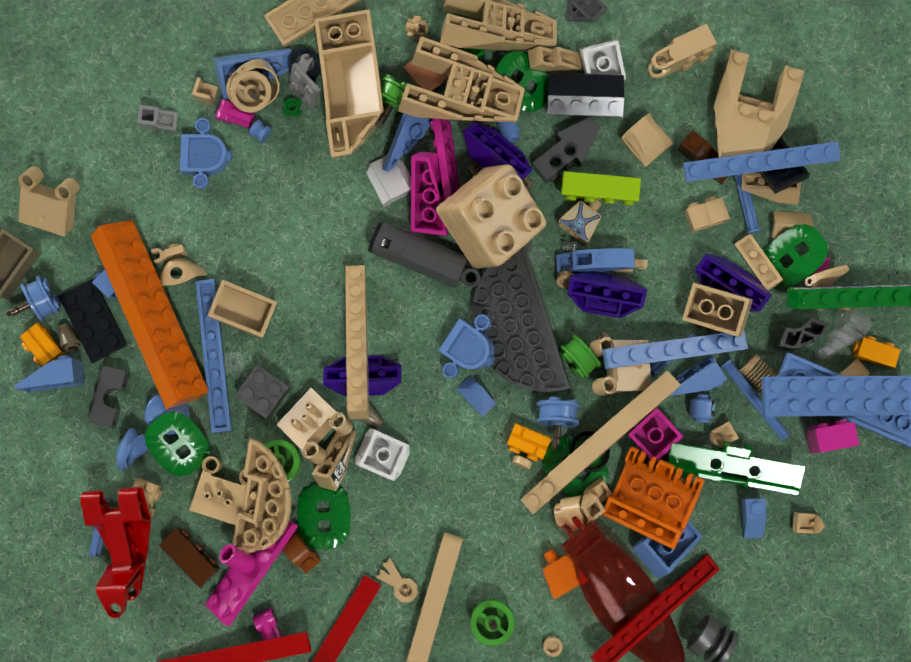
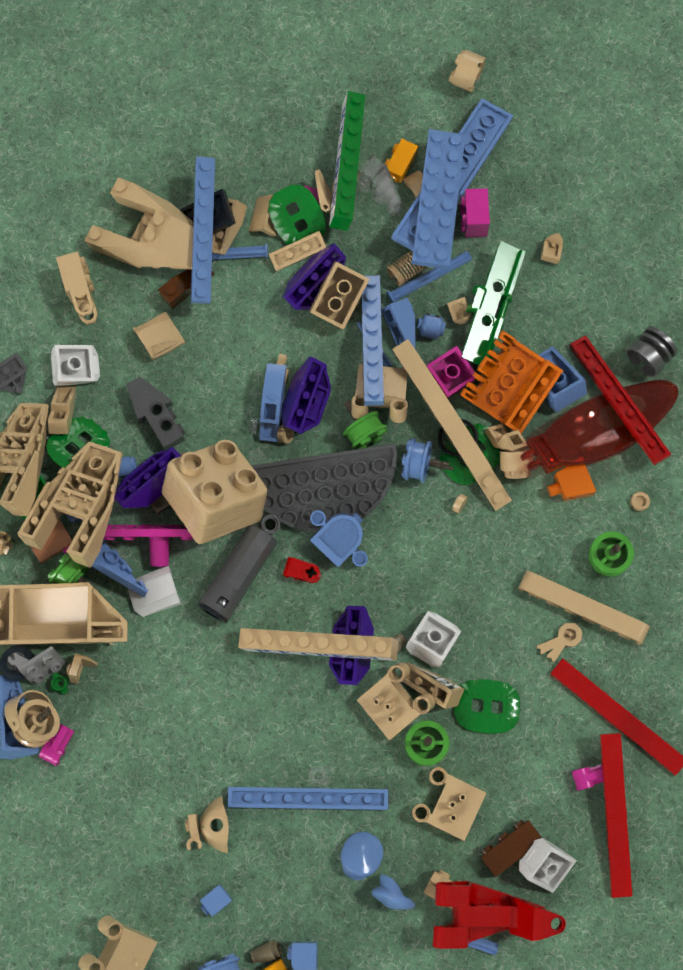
camera: 80 degrees left, 5 degrees down
(92, 321) = (251, 924): black plate -> none
(109, 380) = (351, 923): dark grey arch -> none
(149, 313) = (254, 858): orange brick -> none
(155, 119) = (47, 827): light grey brick -> none
(166, 453) = (387, 833): green piece -> none
(175, 592) = (546, 864): none -> white slope
(203, 154) = (94, 782): medium blue piece -> none
(204, 92) = (27, 772): tan panel -> none
(241, 309) = (266, 760): tan piece -> none
(243, 576) = (527, 785): dark pink plate -> none
(260, 131) = (80, 719): medium blue wheel -> none
(263, 392) = (354, 750): flat silver brick -> none
(265, 502) = (469, 757): tan brick -> none
(300, 553) = (518, 735): dark orange brick -> none
(305, 118) = (74, 670): none -> tan plate
(425, 194) = (181, 554): dark pink wedge -> none
(431, 313) = (298, 570): none -> red piece
(476, 396) = (387, 538): medium blue slope -> none
(528, 442) = (440, 494): light orange brick -> none
(581, 220) = (229, 409): torso -> none
(585, 94) = (103, 386): black slope -> none
(600, 187) = (200, 386): lime slope -> none
(706, 214) = (243, 291): tan brick -> none
(753, 517) = (540, 296): medium blue slope -> none
(797, 338) = (375, 221): dark grey brick -> none

